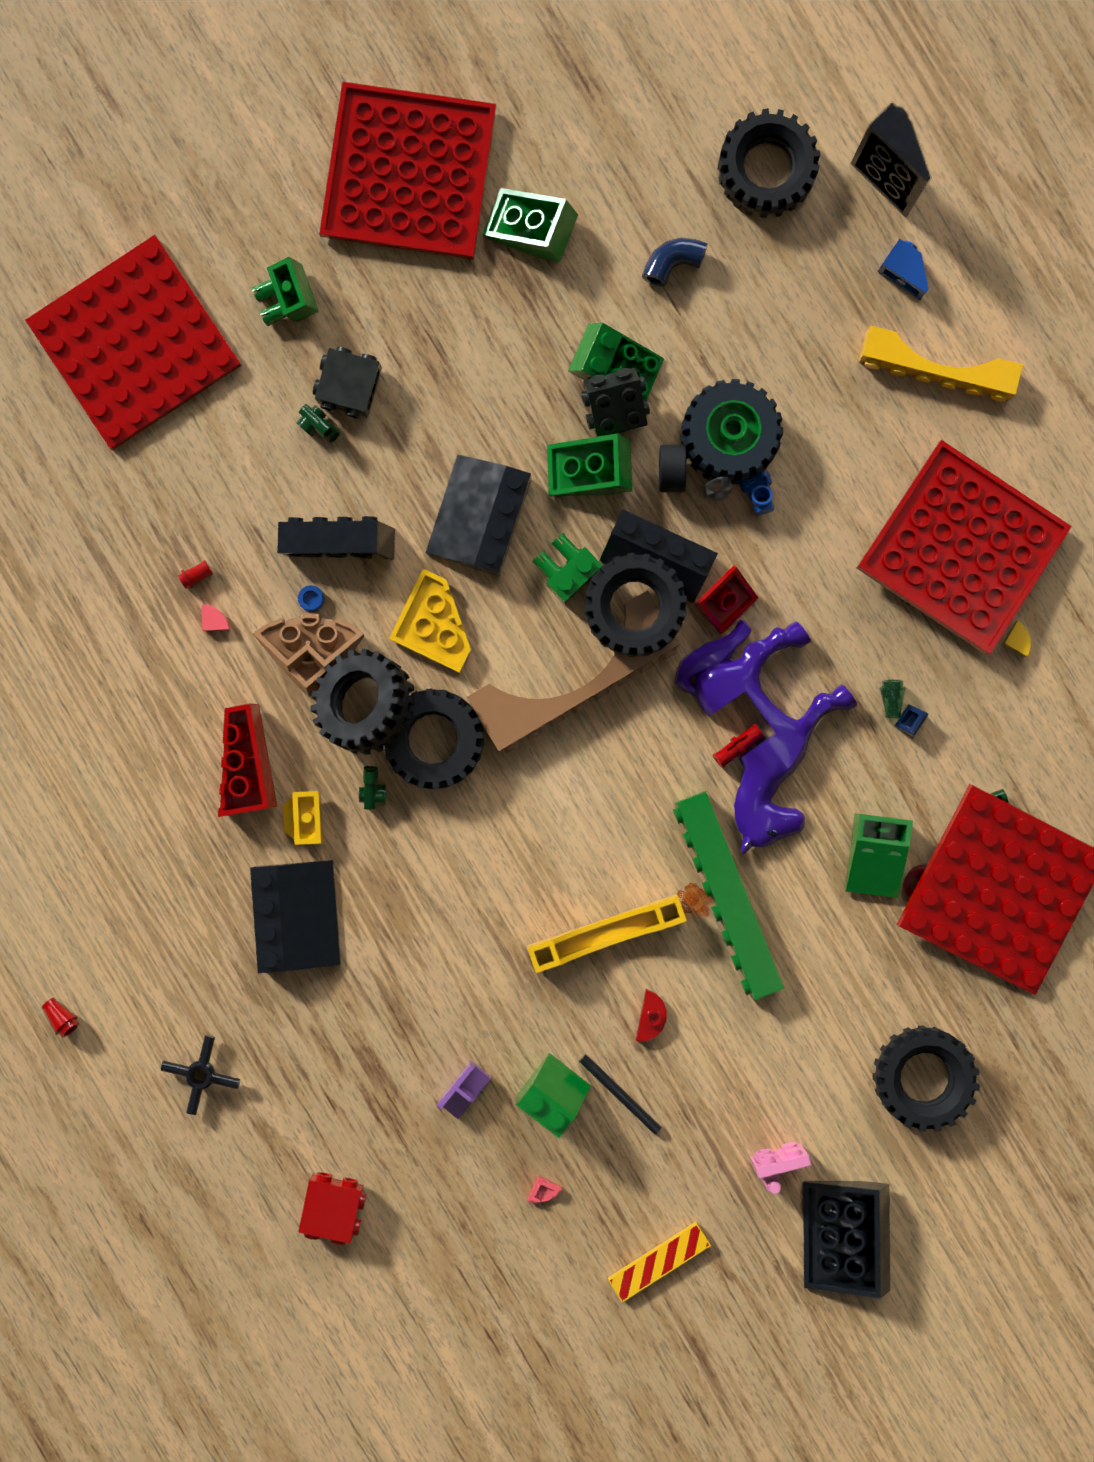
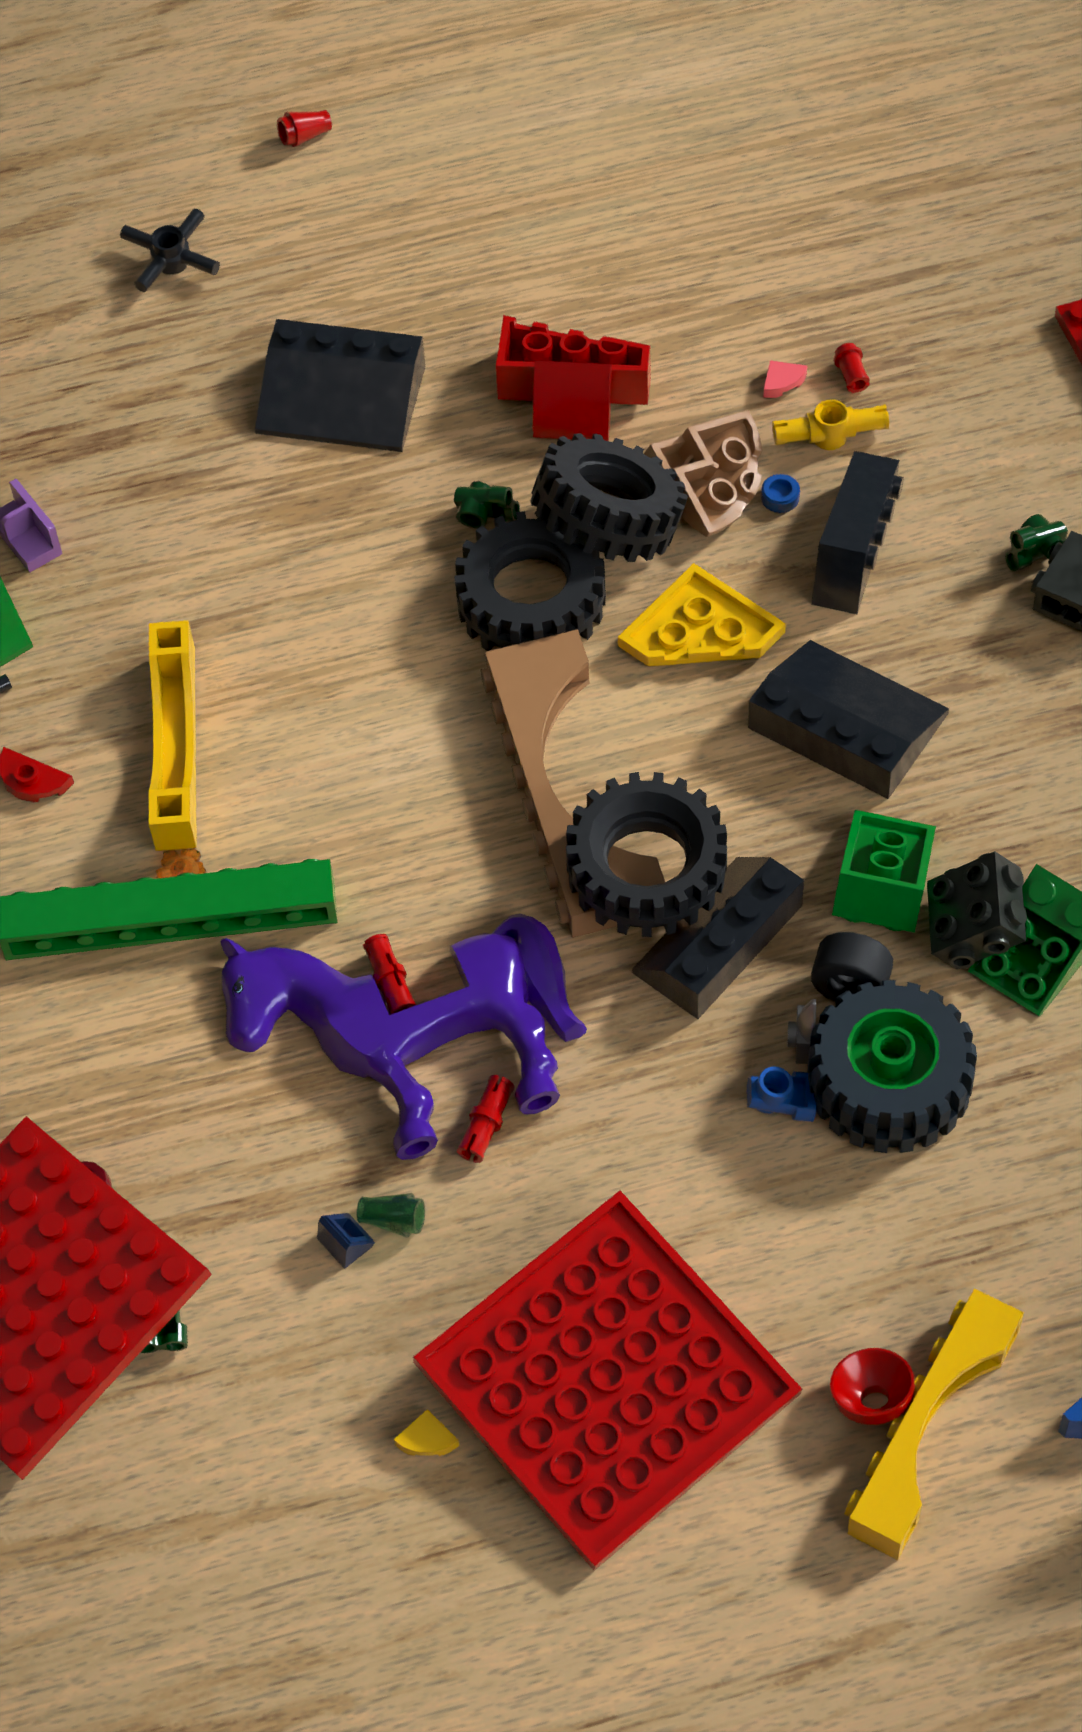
camera: 105 degrees right, 30 degrees down
(243, 566) = (830, 424): none -> yellow pin
(276, 751) = (571, 399): none -> red slope
(304, 817) = (469, 426): yellow slope -> none
(572, 577) = (737, 812): green brick -> none
(726, 600) = (625, 1006): red slope -> none
(817, 661) = (485, 1118): none -> red pin
(878, 855) = (154, 1127): green slope -> none
(922, 389) = (868, 1373): none -> red piece

